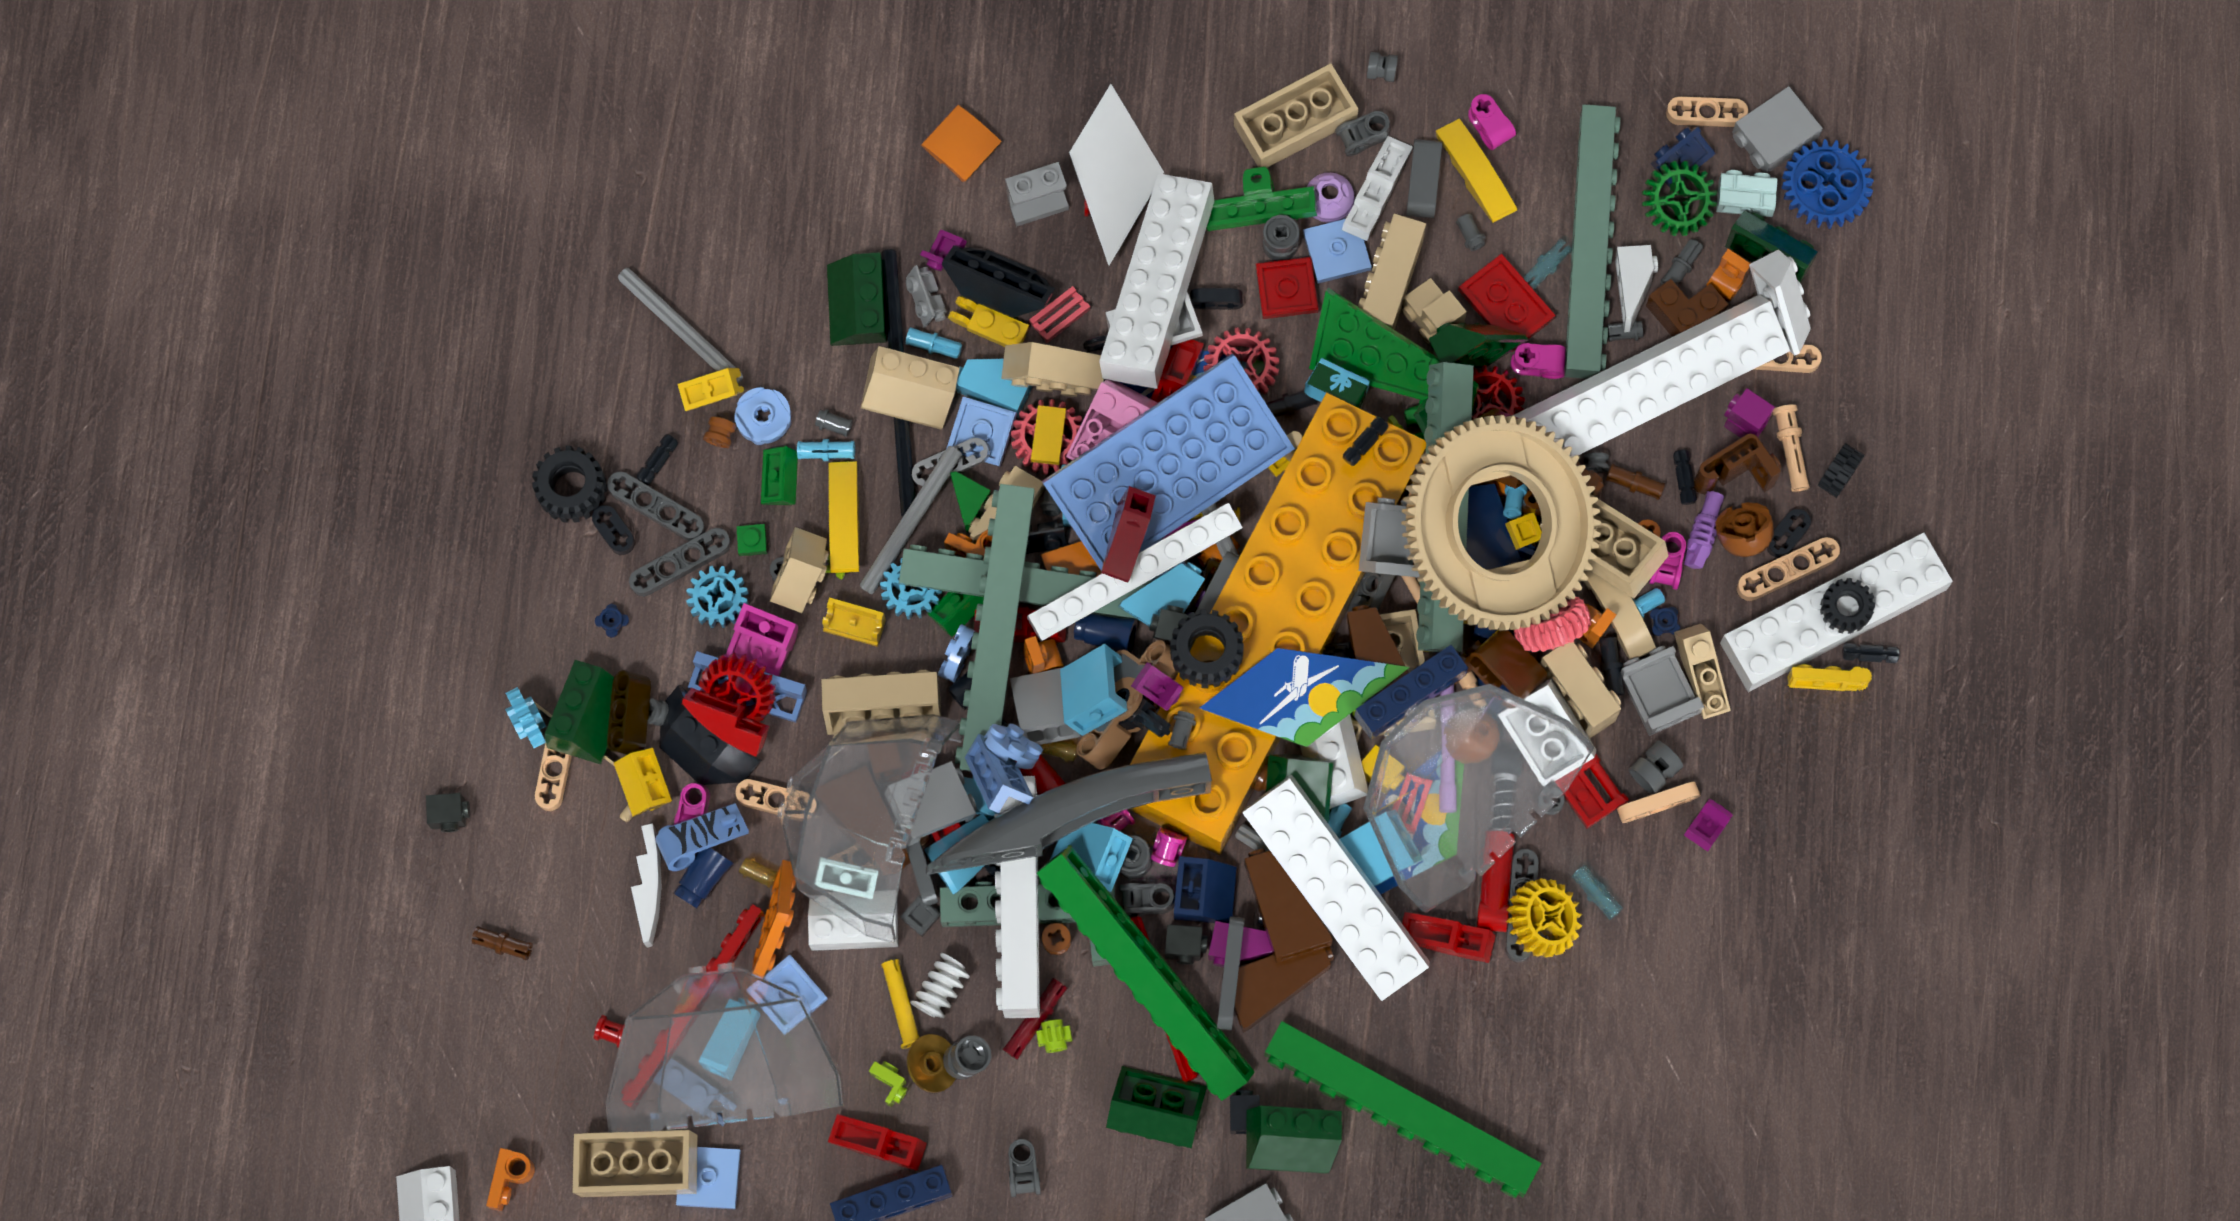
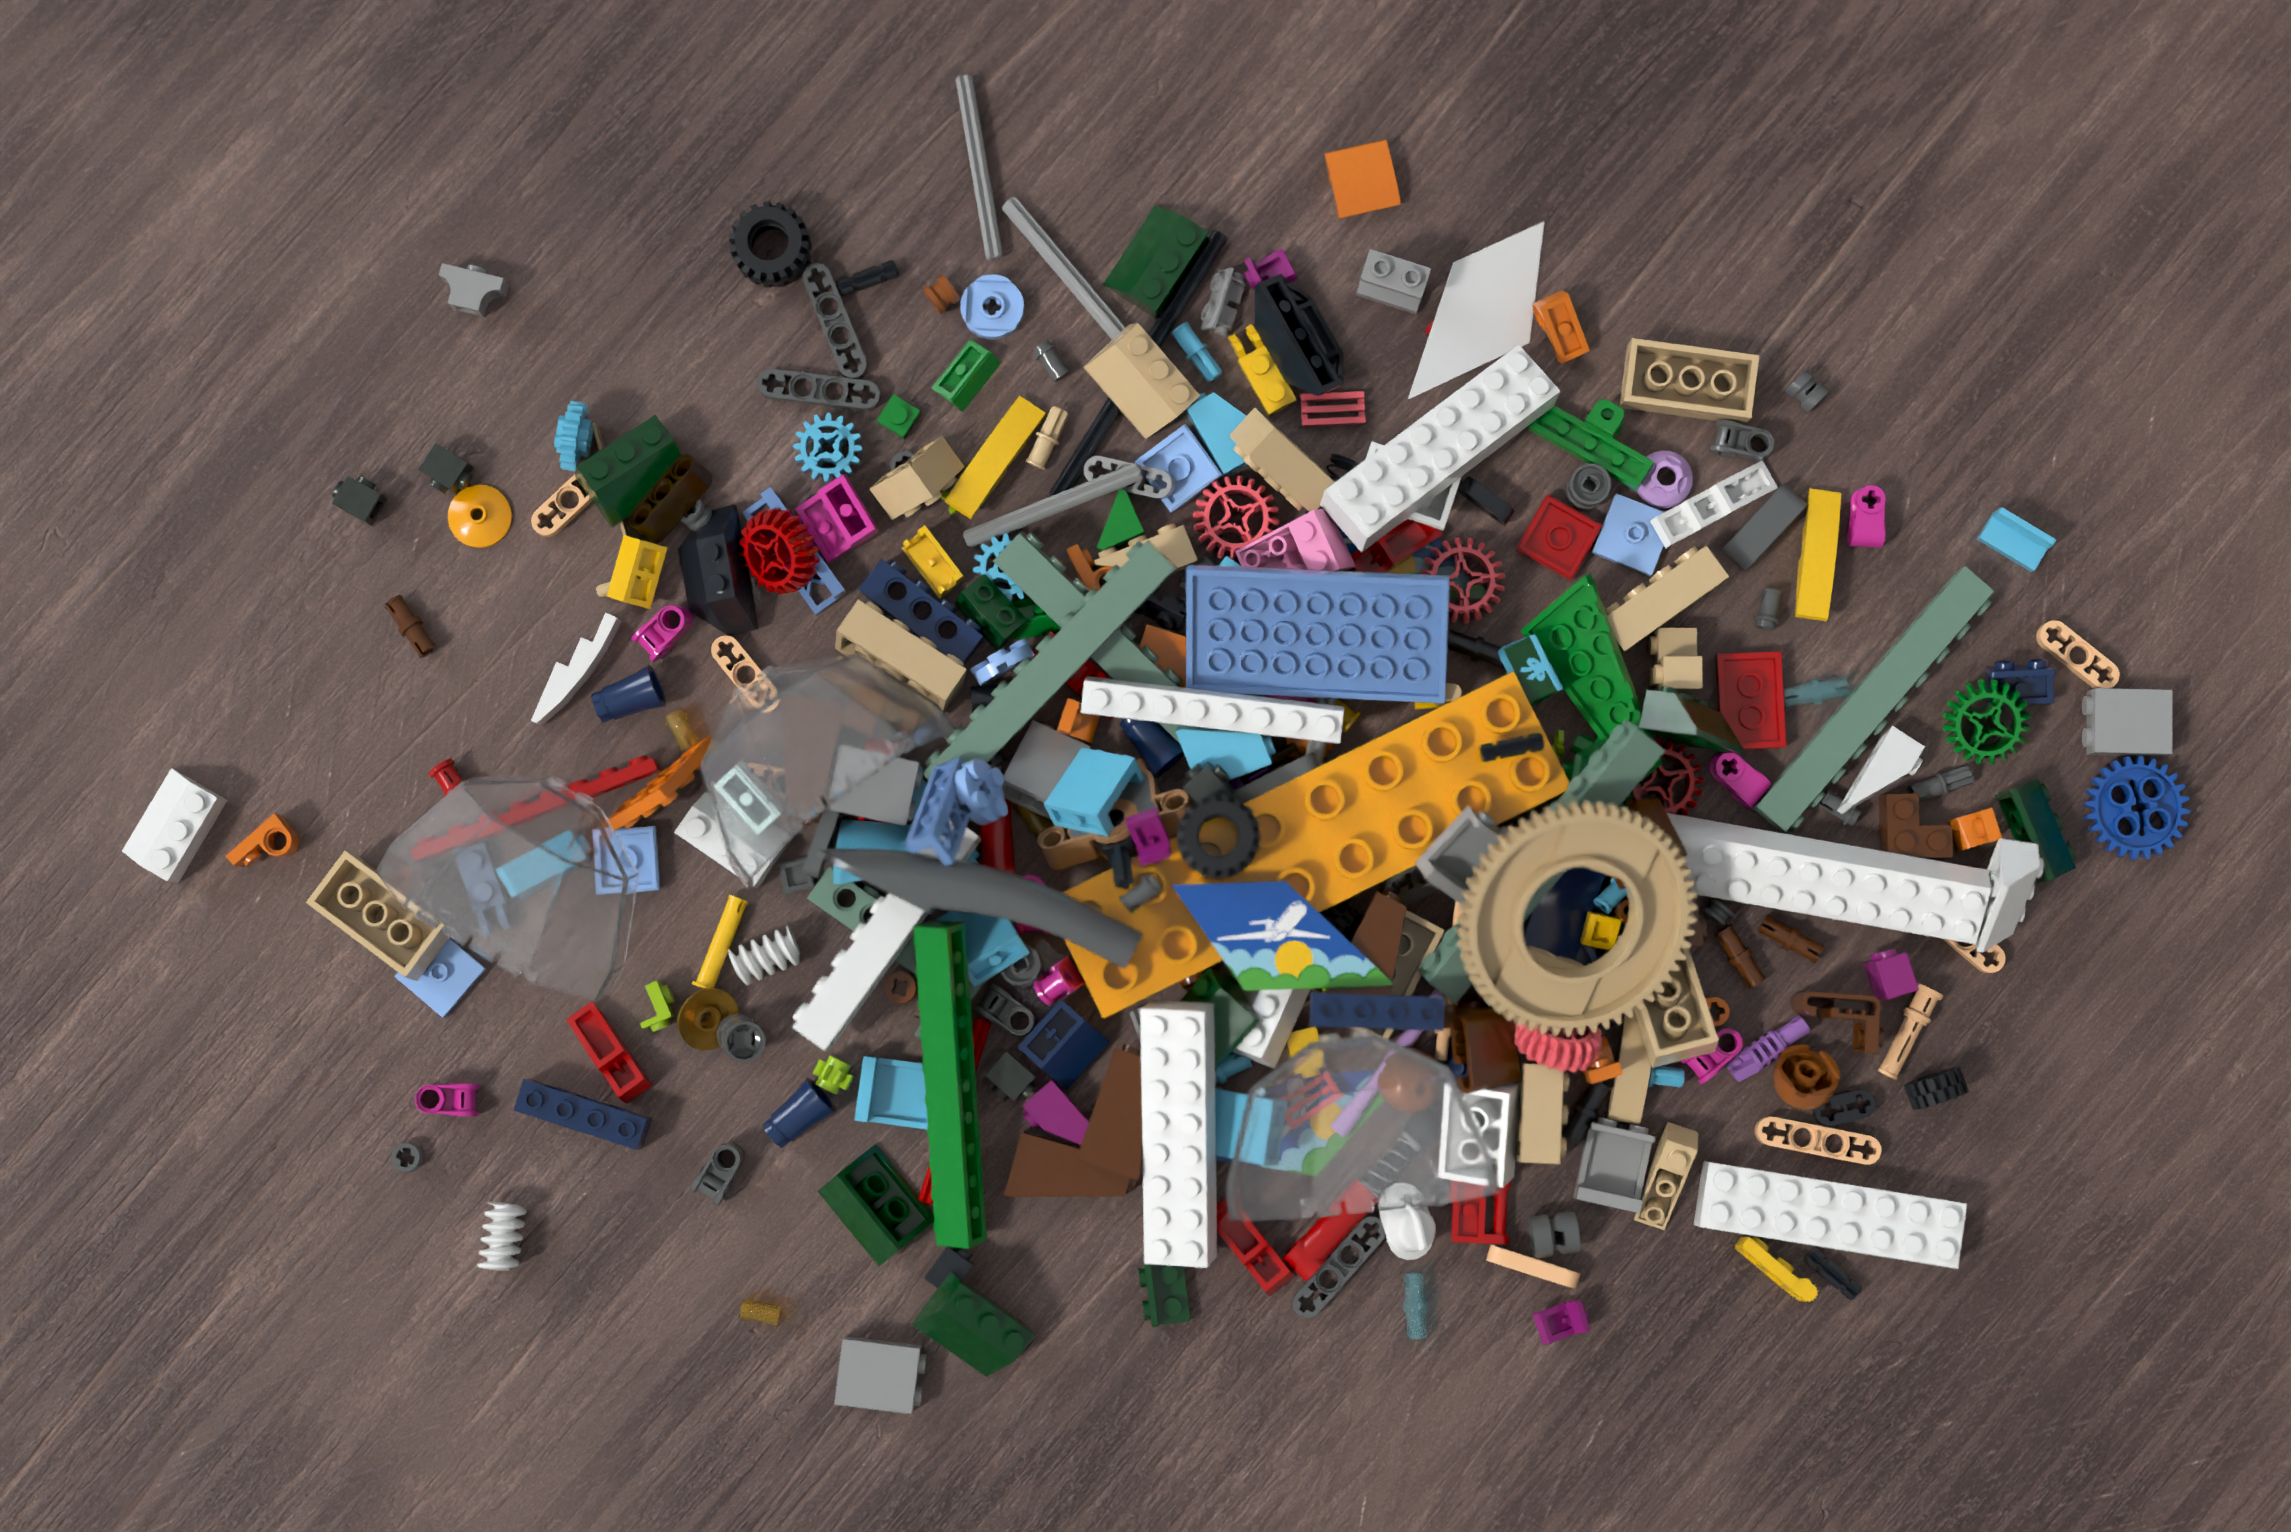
camera: 35 degrees right, 10 degrees up
(371, 669) = (472, 288): none -> light grey brick
(396, 879) = (359, 499): none -> pearl dark grey brick
(500, 842) = (492, 525): none -> light orange dish
(611, 628) = (712, 393): dark blue plate -> none
(618, 526) = (773, 315): black beam -> none
(685, 839) = (650, 659): medium blue door -> none
(710, 388) = (960, 248): yellow hinge -> none
(726, 721) = (747, 573): red slope -> none
(793, 353) = (1063, 267): none -> light grey axle
(825, 450) = (1025, 381): medium azure pin -> none
(859, 650) = (877, 589): none -> dark blue brick
(871, 477) = (1047, 437): none -> tan axle
(921, 626) = (990, 610): none -> dark green bracket
(1030, 1025) = (810, 1051): dark red pin -> none
(1048, 435) = (1233, 519): yellow tile -> none
(1050, 1083) = (798, 1113): none -> dark blue plant
(1110, 1017) = (892, 1093): none -> medium azure panel
(1127, 533) = (1228, 673): dark red slope -> none
(1174, 140) = (1562, 326): none -> orange plate
(1230, 973) = (1027, 1139): dark grey beam -> none
(1401, 1109) = (1092, 1372): green brick -> none
(1412, 1015) = (1165, 1293): none -> dark green bracket
(1549, 840) = (1409, 1230): none -> white piece
(1558, 918) = (1338, 1290): yellow gear -> none
(1603, 63) = (2015, 539): none -> medium azure panel
(1661, 444) = (1791, 938): none -> reddish brown pin
(1670, 615) = (1676, 1102): dark blue plate -> none
(1684, 477) = (1789, 985): black axle -> none
(1746, 193) = (2053, 762): light aqua brick -> none
(1854, 590) = (1860, 1216): black tyre -> none

